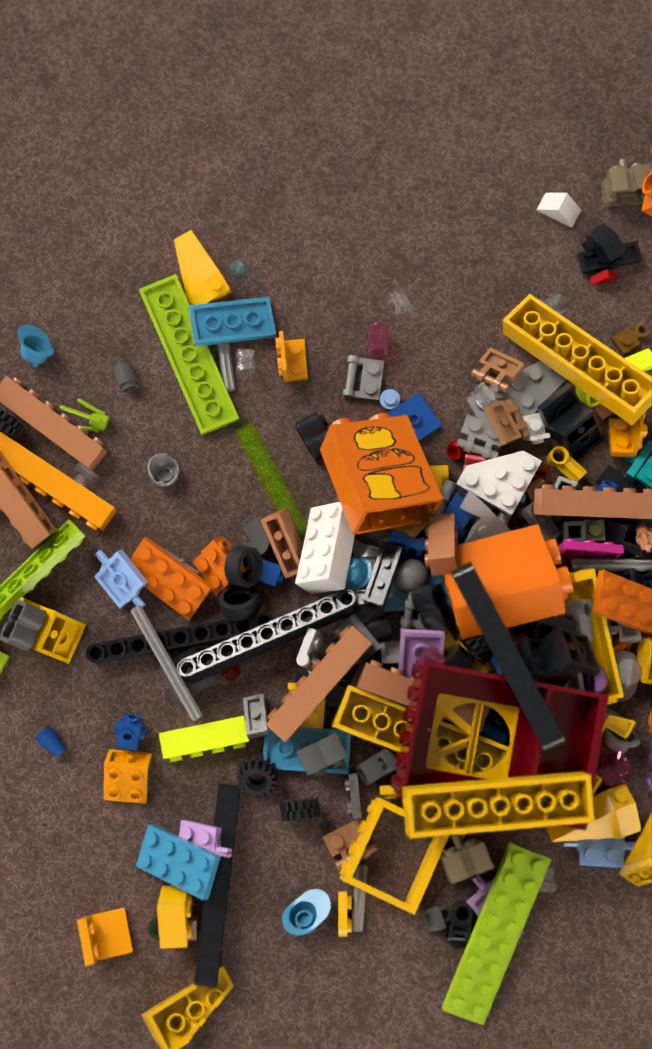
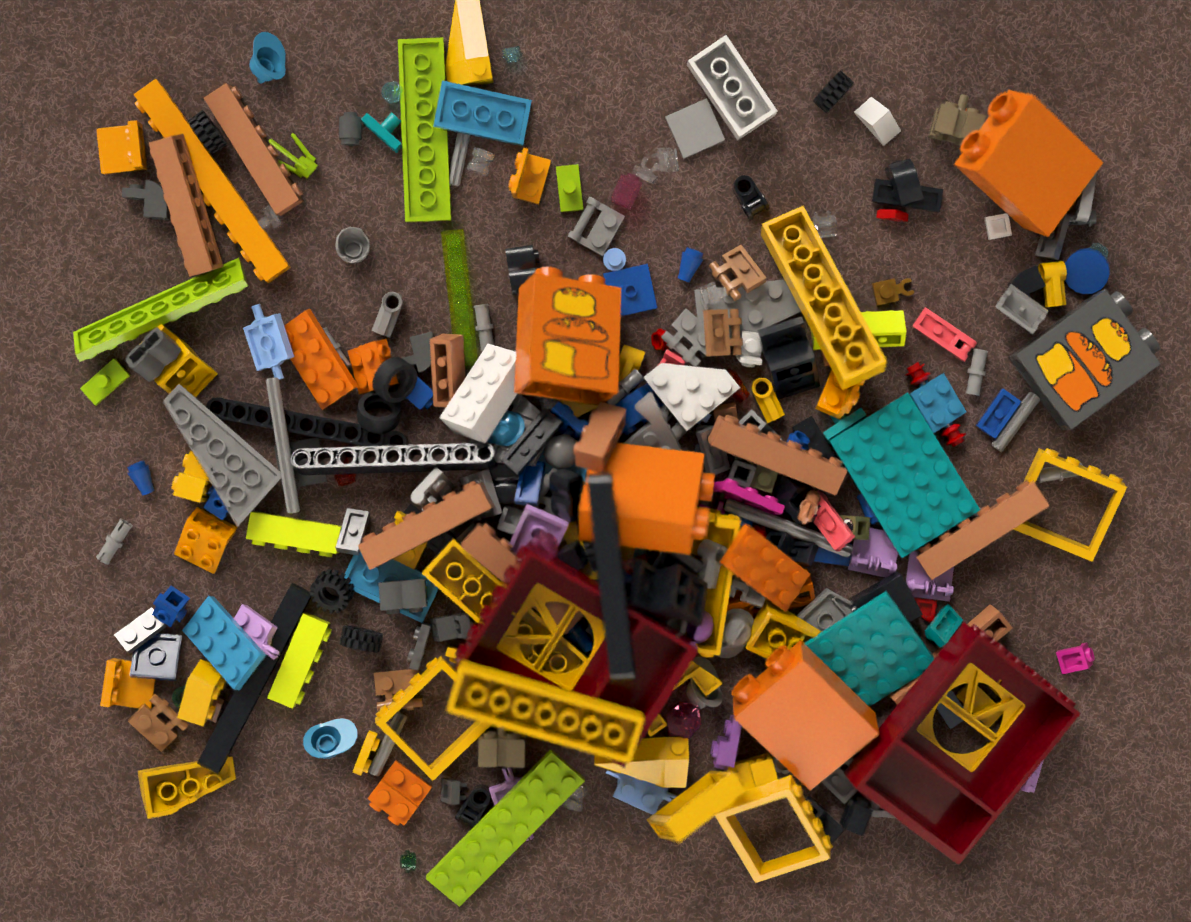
camera: 25 degrees right, 10 degrees up
(46, 809) = (114, 541): none -> light grey pin
(97, 881) = (139, 631): none -> plate
(100, 721) = (192, 483): none -> yellow brick
(117, 847) = (170, 606): none -> blue brick
(120, 899) = (157, 658): none -> plate
(123, 695) = (229, 462): none -> light grey wing
(140, 966) = (153, 727): none -> medium nougat plate
(149, 333) = (391, 92): none -> clear light blue plate
(154, 366) = (384, 129): none -> teal tile
(215, 518) = (386, 316): none -> light grey piece
(251, 852) = (299, 660): none -> neon yellow brick
(301, 495) = (484, 325): none -> light grey pin
(328, 356) = (569, 188): none -> lime tile
(387, 940) = (399, 793): none -> orange plate
(388, 319) = (645, 173): none -> clear tile
(396, 613) = (530, 485): none -> blue tile
(413, 270) = (695, 128): none -> light grey tile
(420, 1001) = (408, 861): none -> clear green plate
(430, 224) = (731, 87): none -> white brick
(454, 378) = (690, 262): none -> blue cone
(482, 306) = (750, 198): none -> black piece
(514, 196) = (833, 91): none -> black tyre

